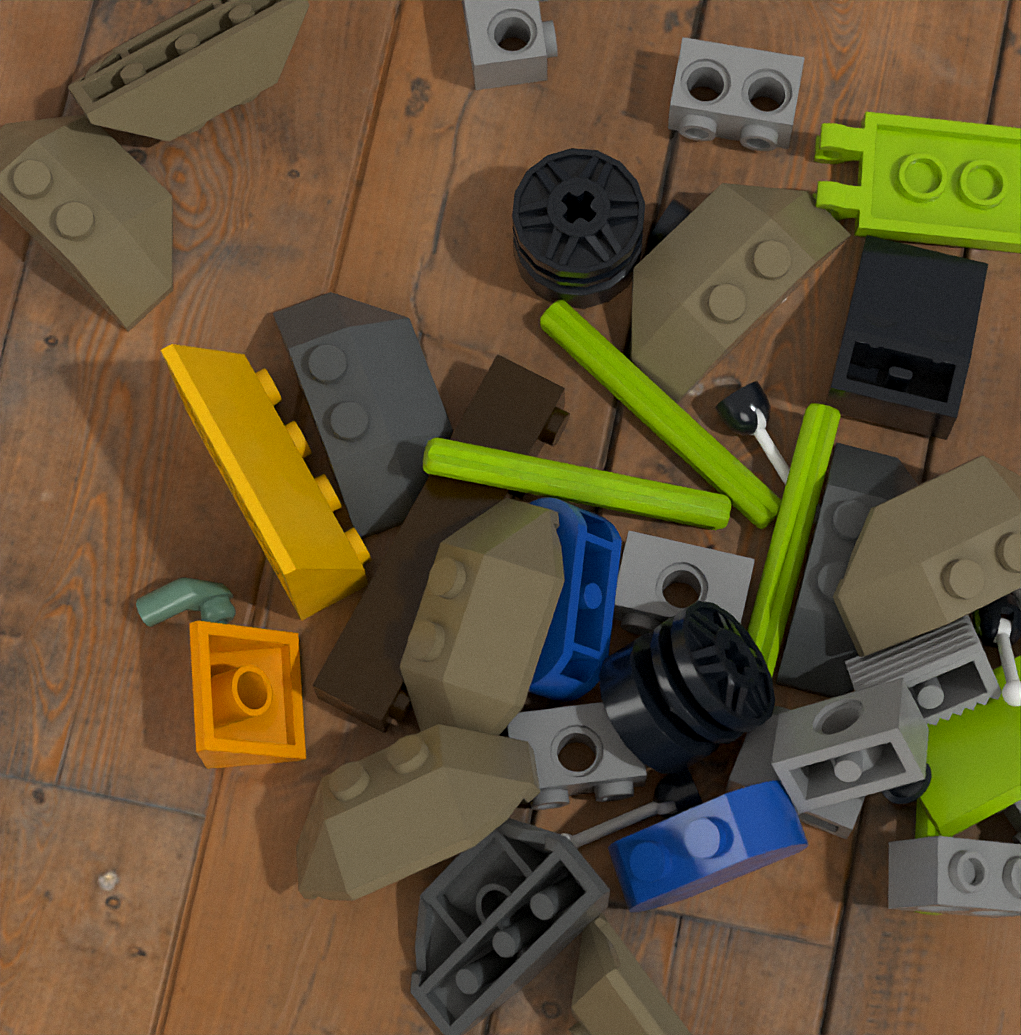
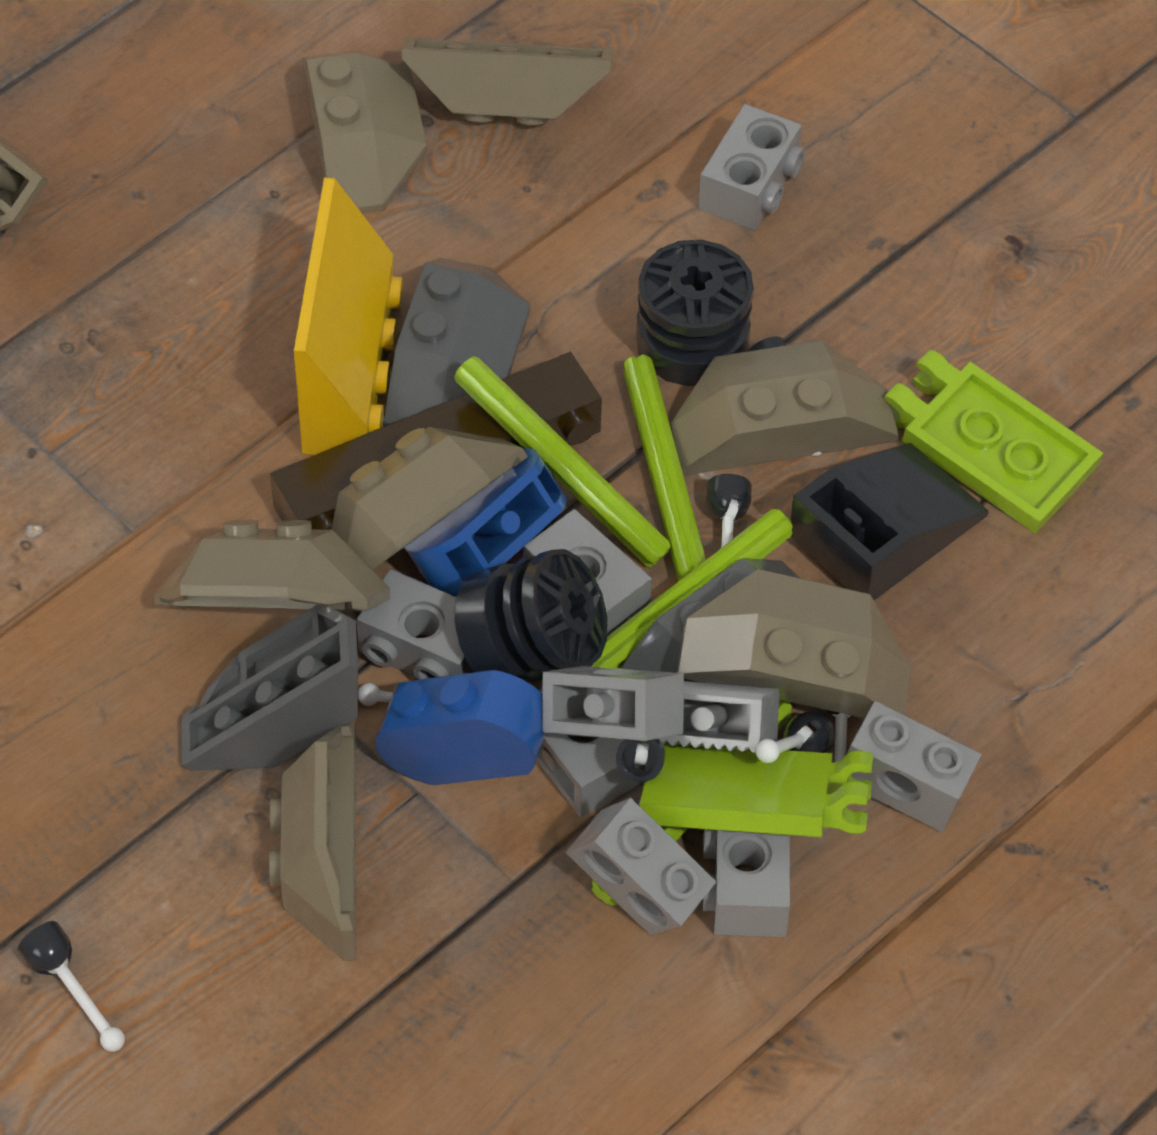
camera: 30 degrees right, 20 degrees down
(187, 594) = (247, 396): sand green arm -> none
(246, 695) = (217, 460): light orange slope -> none
(738, 78) = (882, 301): light grey brick -> none

